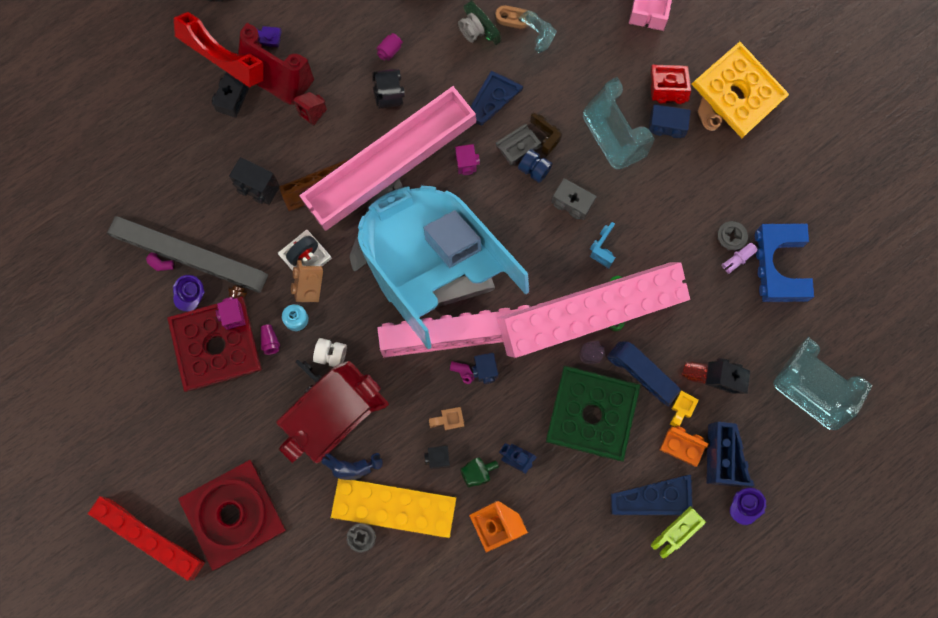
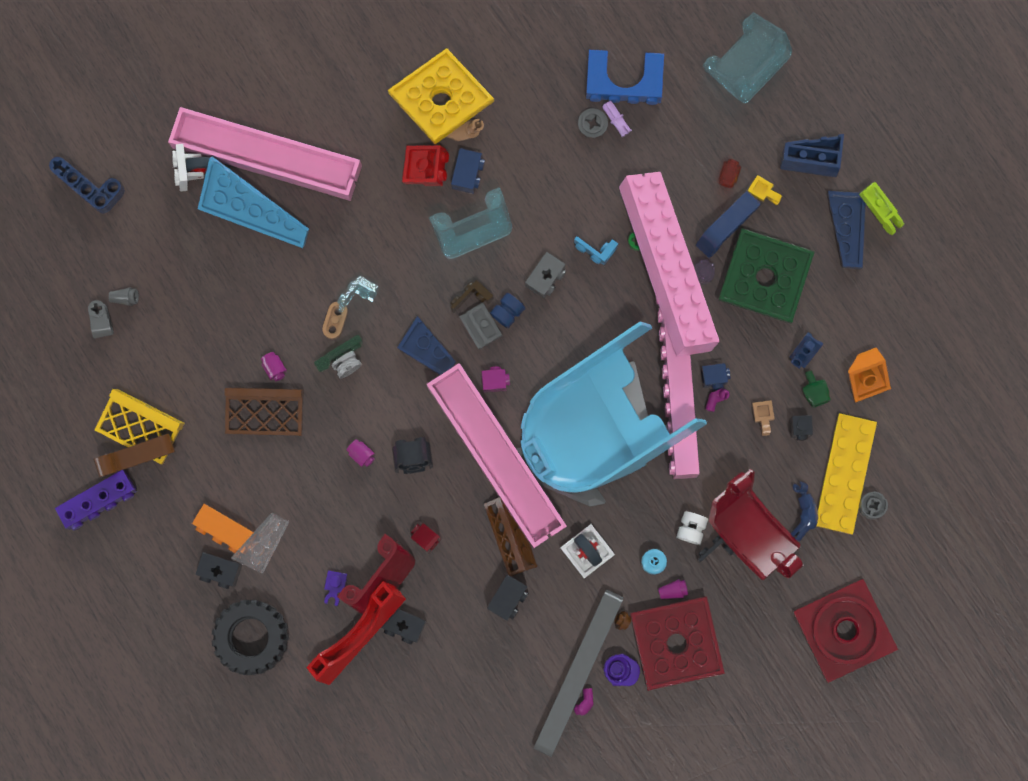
camera: 80 degrees left, 5 degrees up
(146, 539) = (865, 714): red arch -> none
(230, 313) = (650, 623): magenta brick -> none
(307, 282) = (620, 548): medium nougat bracket -> none
(452, 238) = (583, 398): sand blue brick -> none
(683, 446) = (800, 195): orange bracket -> none
(728, 376) = (738, 144): black brick -> none
(747, 506) = (860, 141): dark purple hat -> none

